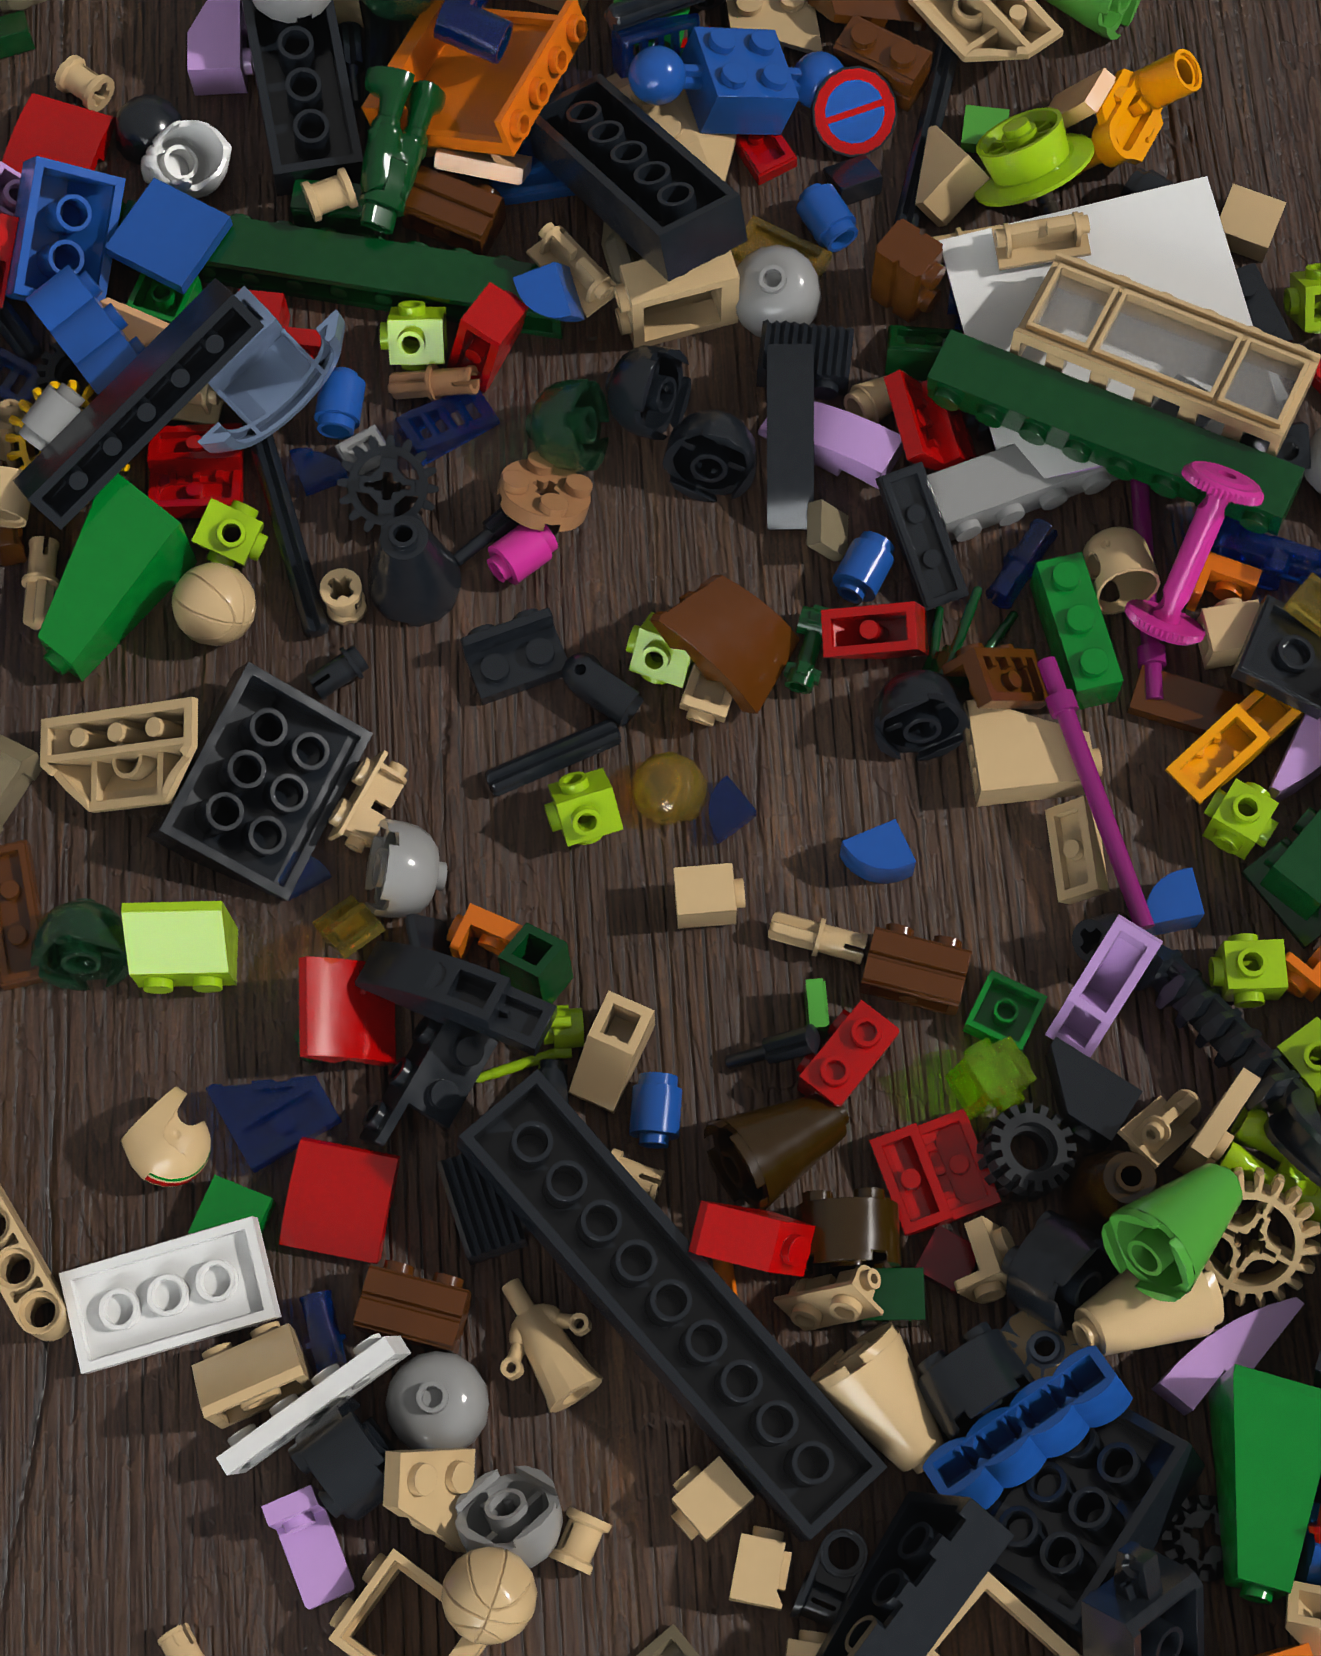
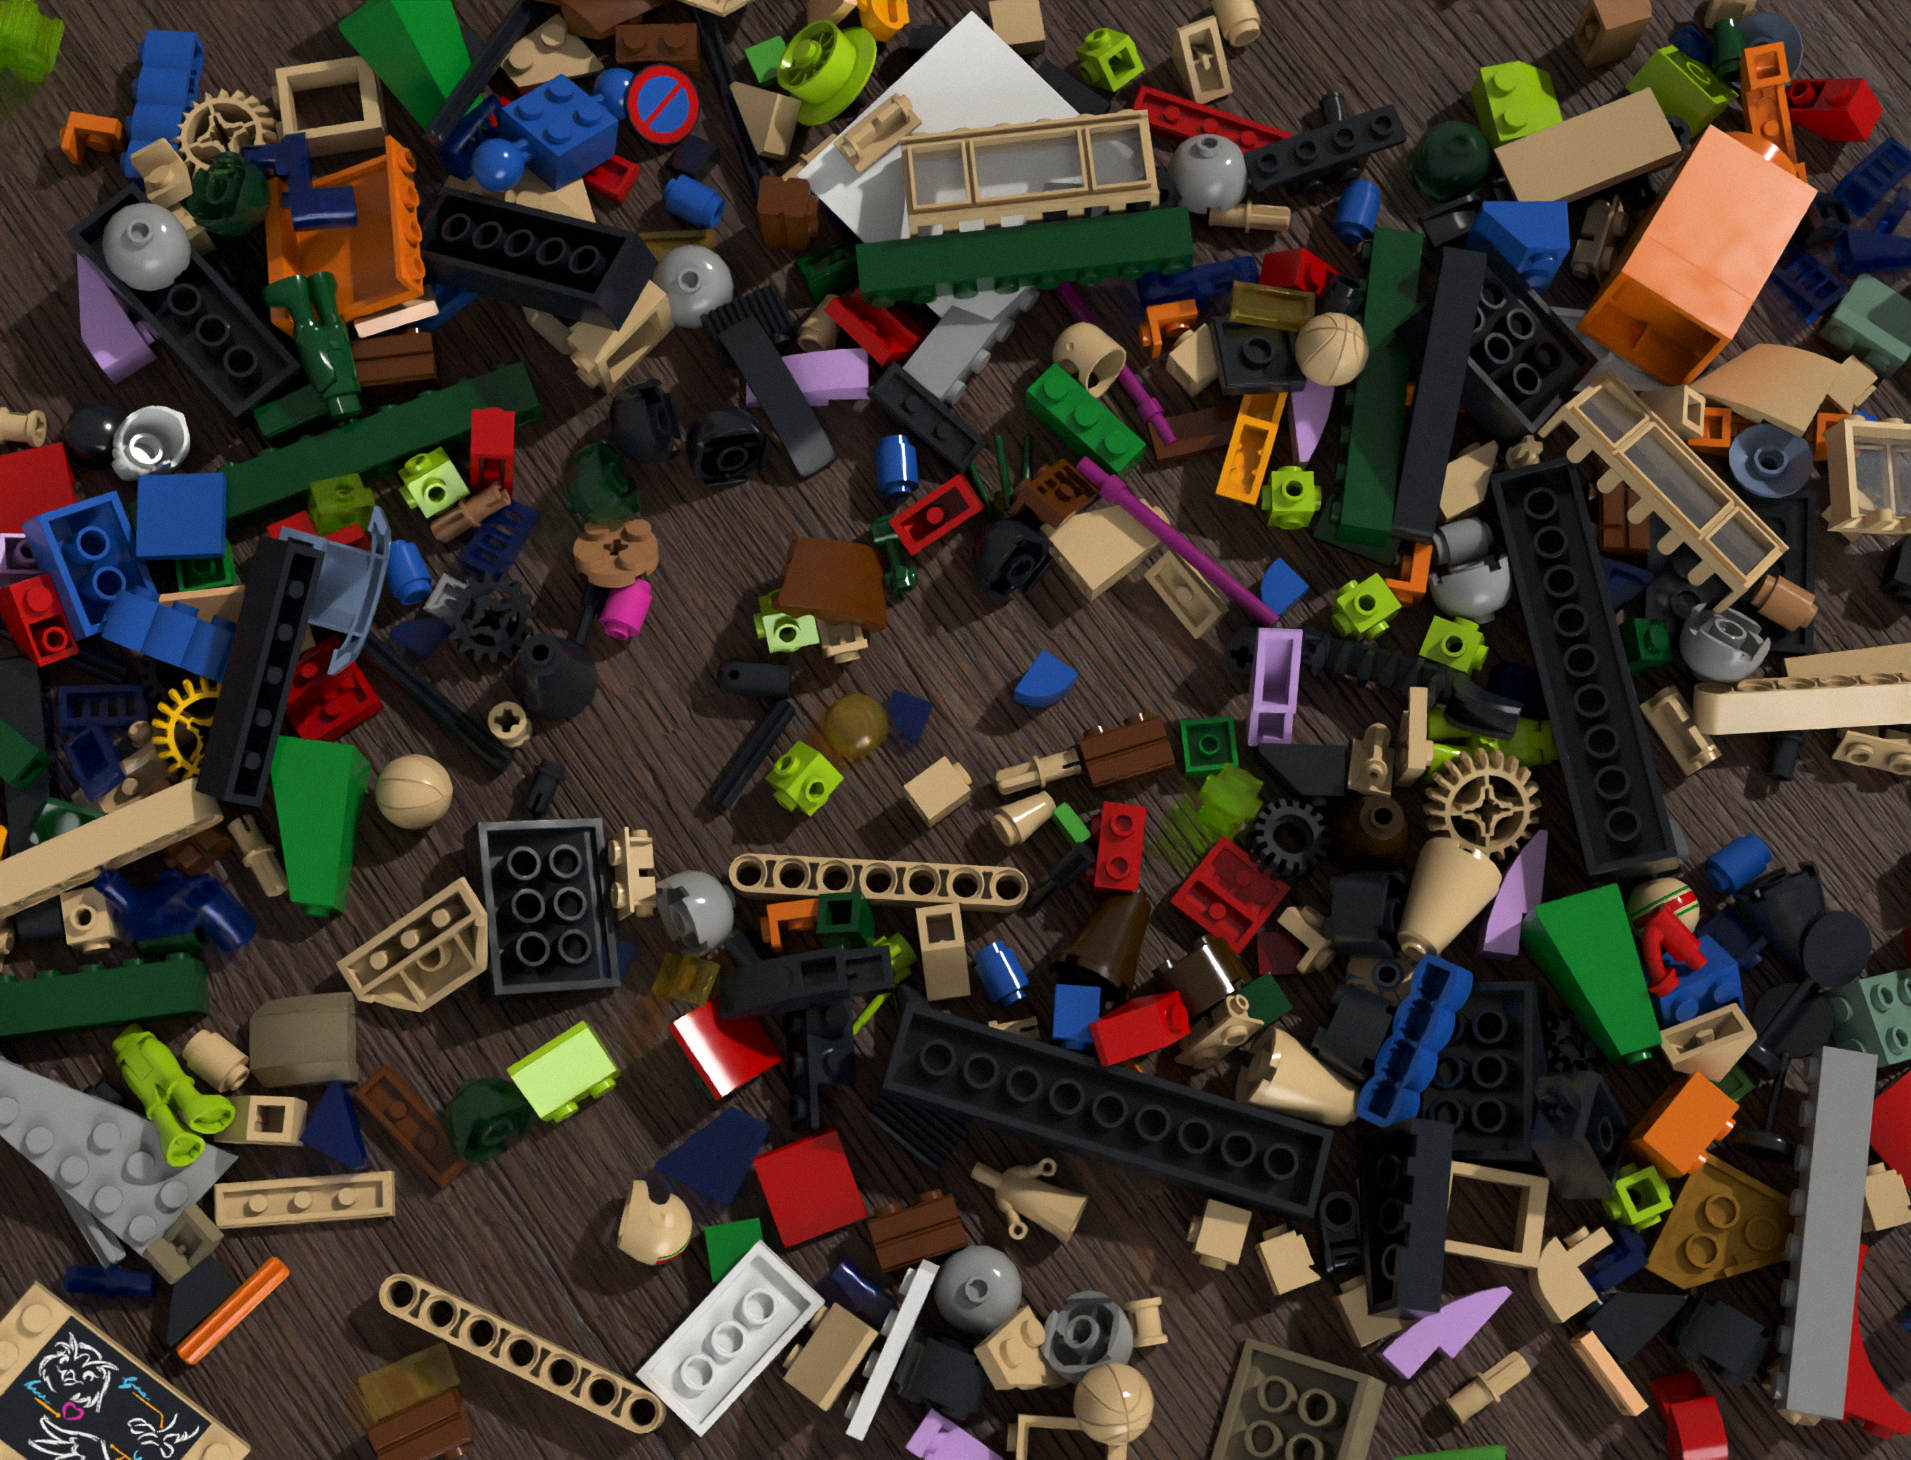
camera: 35 degrees left, 5 degrees up
(50, 415) = (192, 721): light grey brick -> none
(218, 520) = (373, 728): lime brick -> none
(315, 299) = (339, 503): none -> clear neon green brick
(329, 194) = (292, 409): tan bush -> none
(514, 655) = (672, 692): black bracket -> none
(550, 292) = (525, 391): blue brick -> none
(591, 282) = (527, 360): tan hinge -> none
(608, 968) = (900, 873): none -> tan beam
(696, 1179) = (1070, 1017): none -> blue brick
(773, 972) = (1022, 818): none -> tan cone
(827, 530) = (850, 454): dark tan tile -> none
(1021, 563) = (1011, 395): clear blue pin -> none
(1165, 618) = (1147, 377): dark pink hose -> none
(1173, 1230) = (1436, 837): bright green cone -> none

